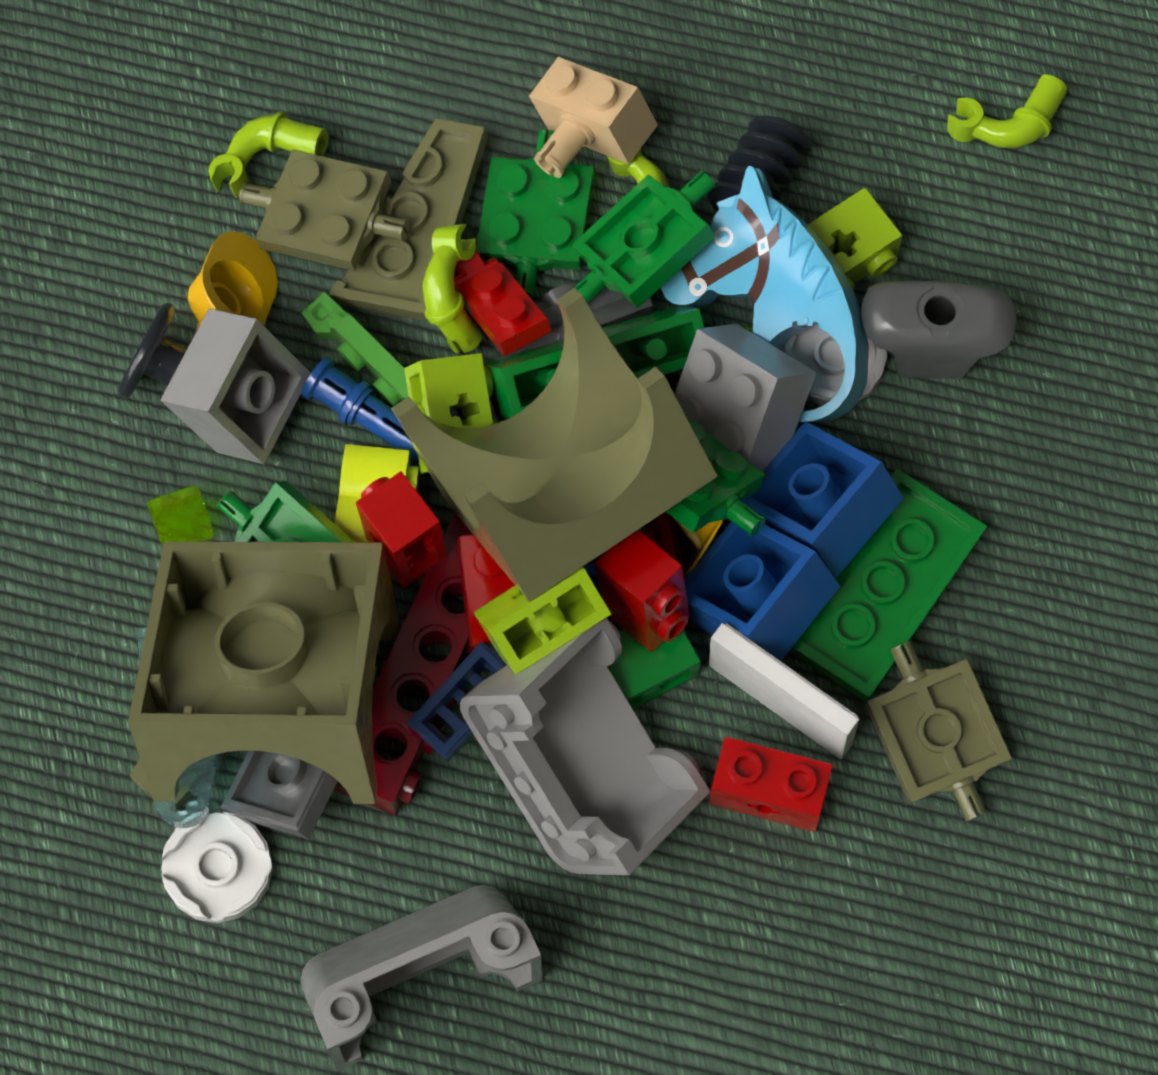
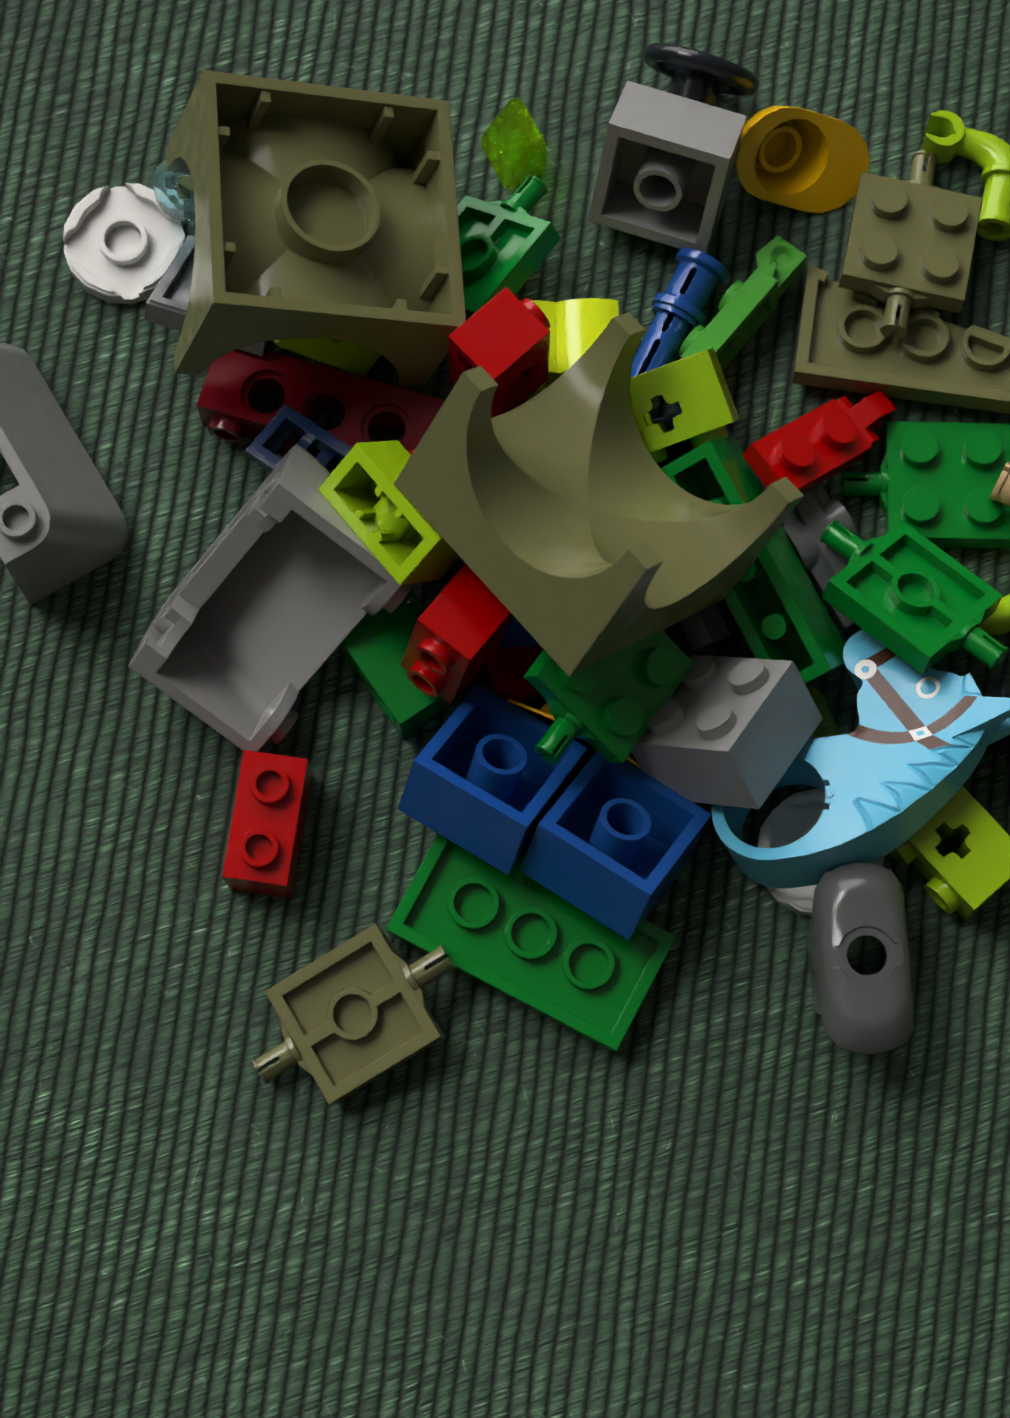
camera: 85 degrees right, 5 degrees up
(441, 300) = (810, 379): lime piece -> none
(782, 690) = (367, 828): white tile -> none

